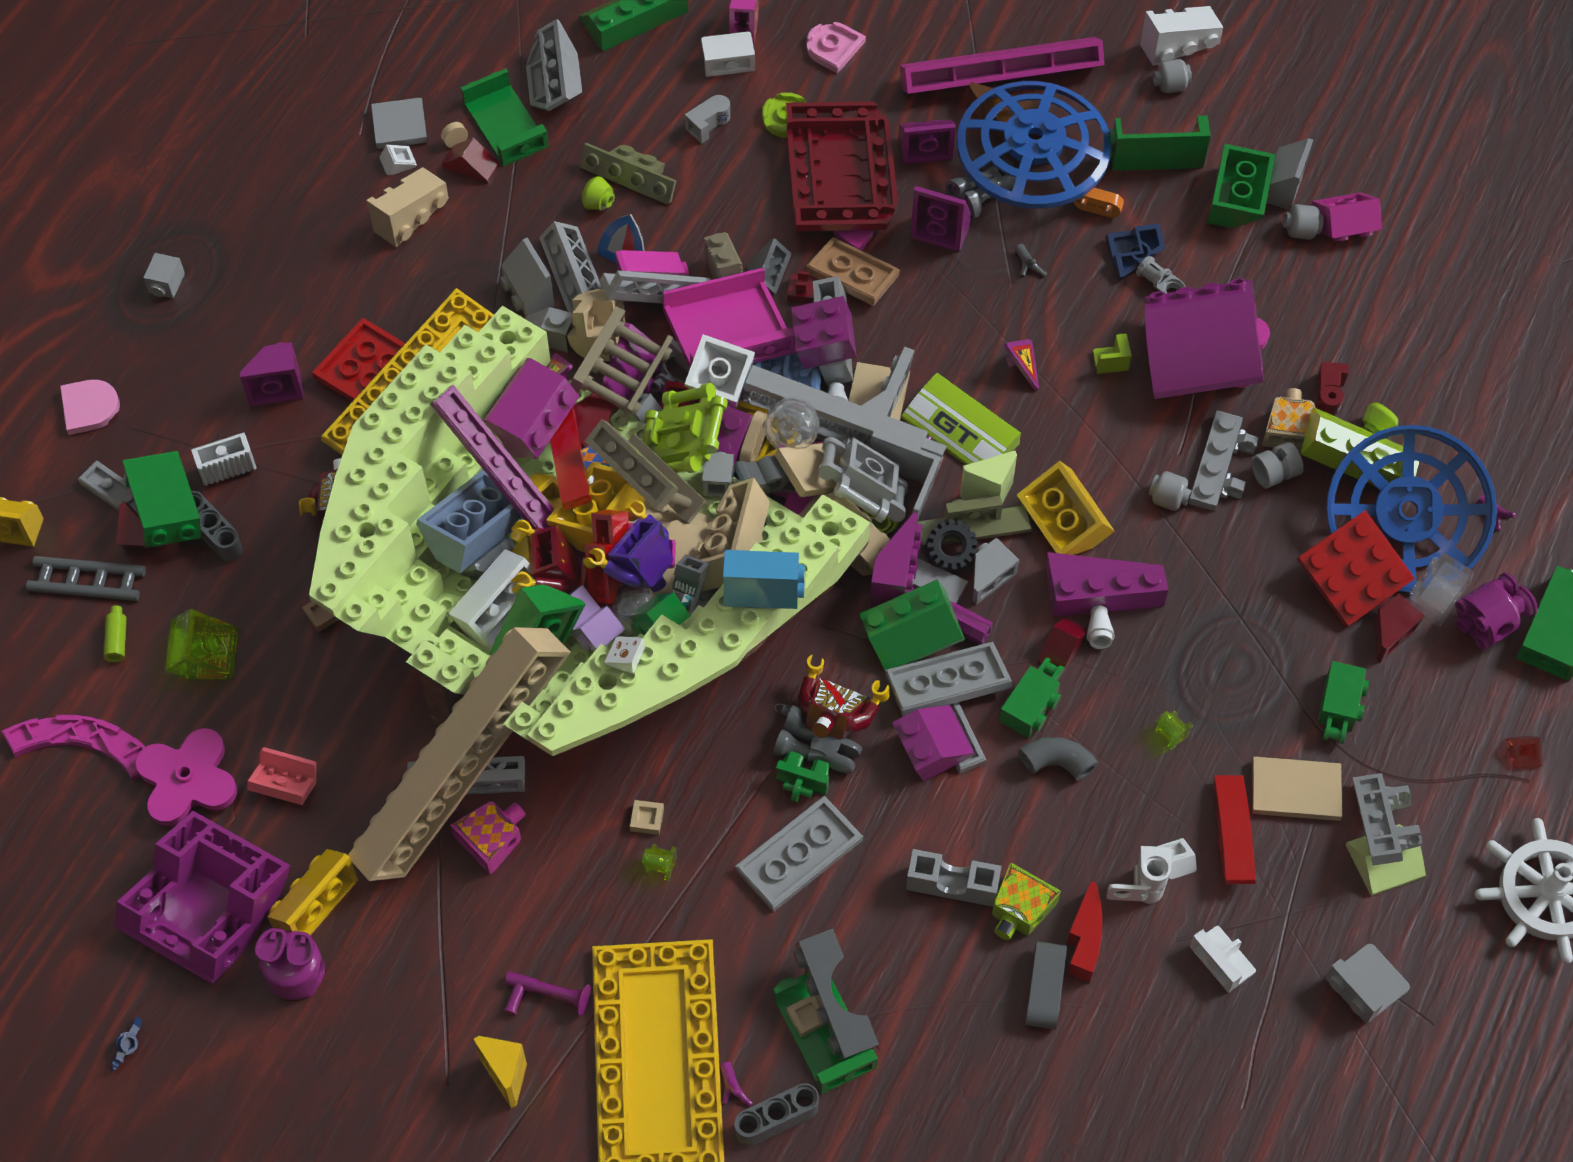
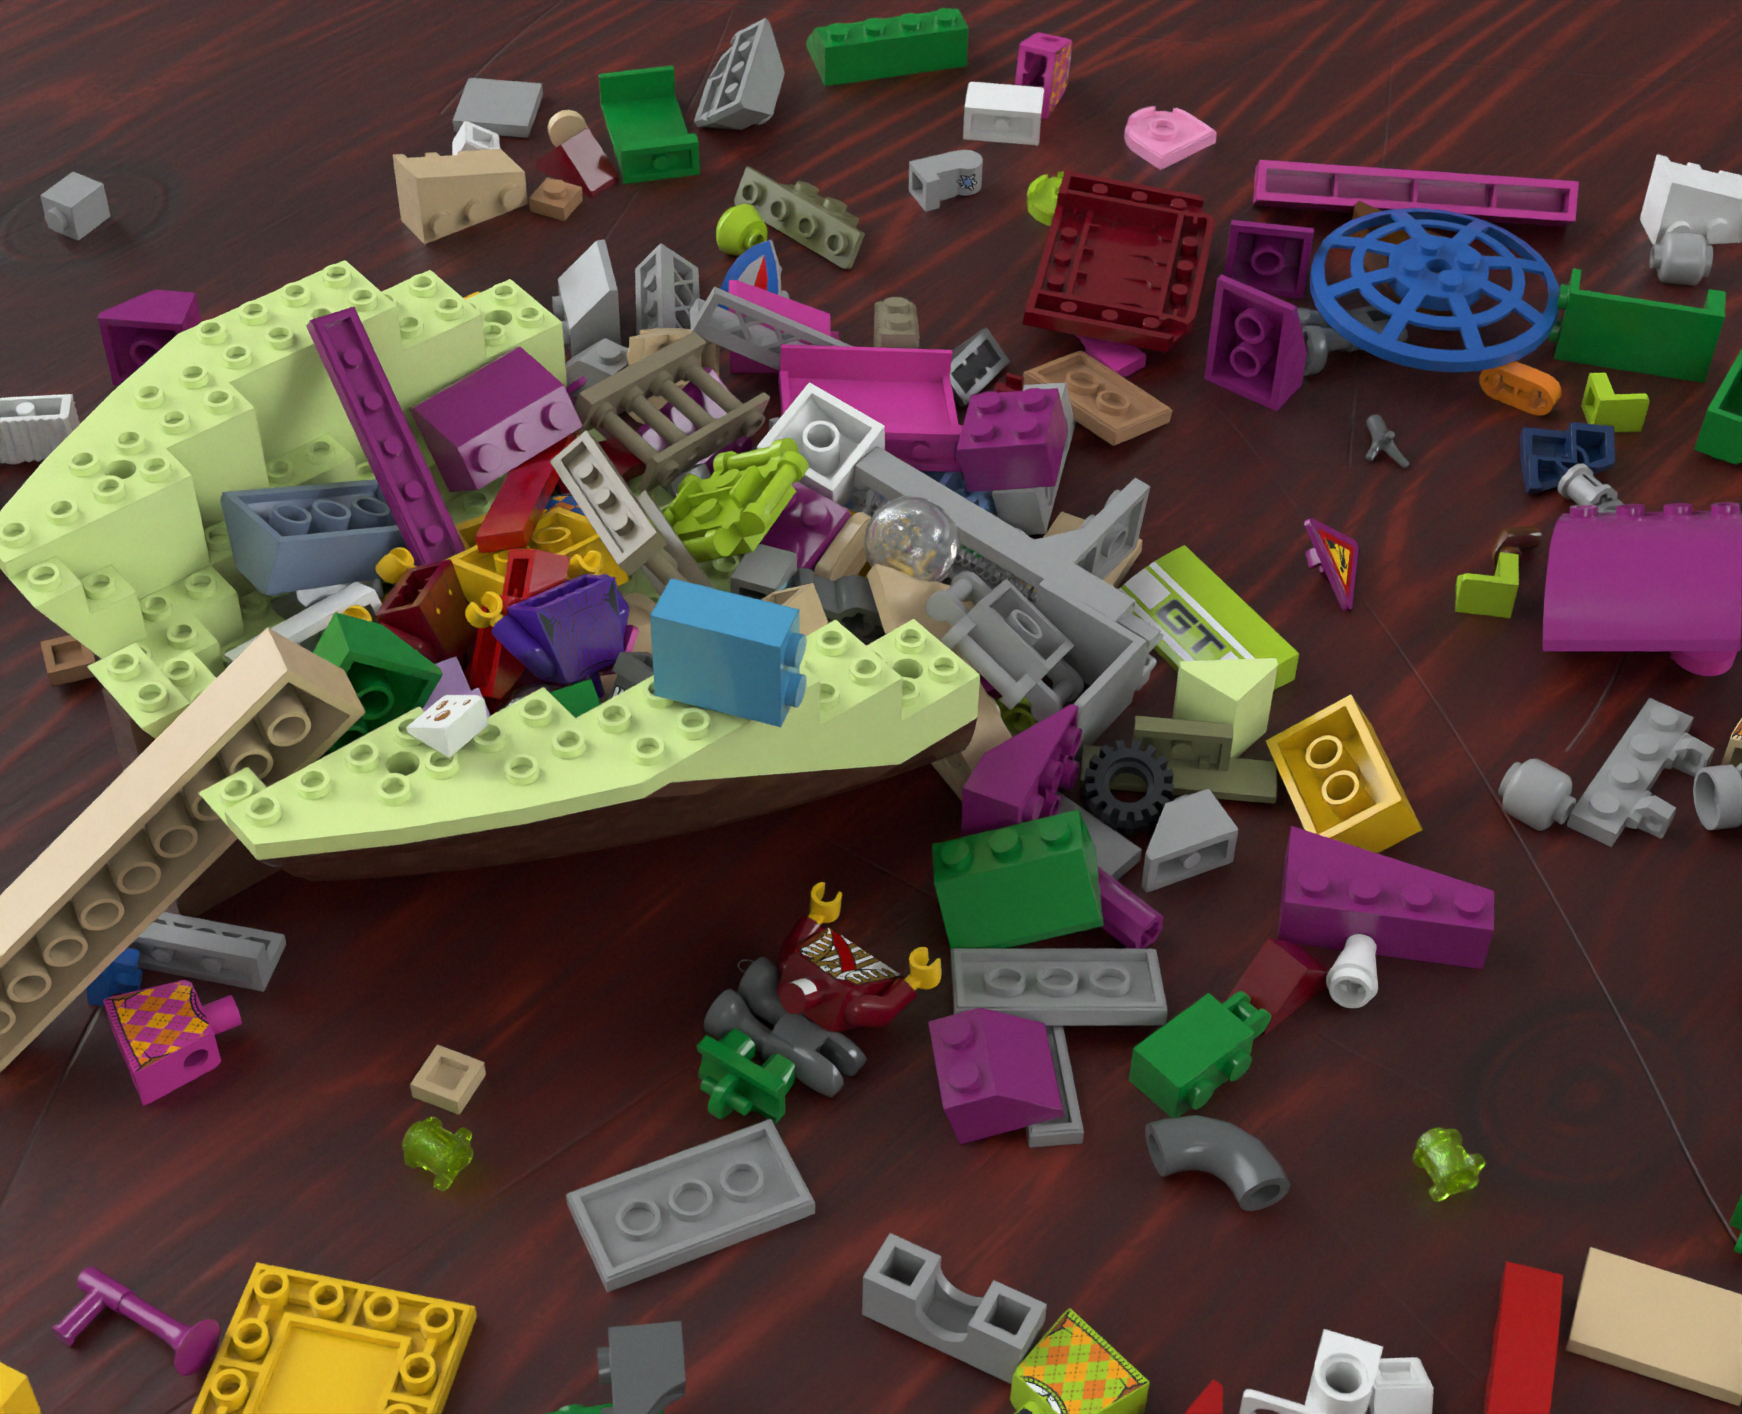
camera: 15 degrees right, 15 degrees down
(466, 192) = (555, 199): none -> medium nougat plate
(1117, 319) = (1513, 539): none -> reddish brown arm
(1154, 206) = (1606, 408): none -> lime panel

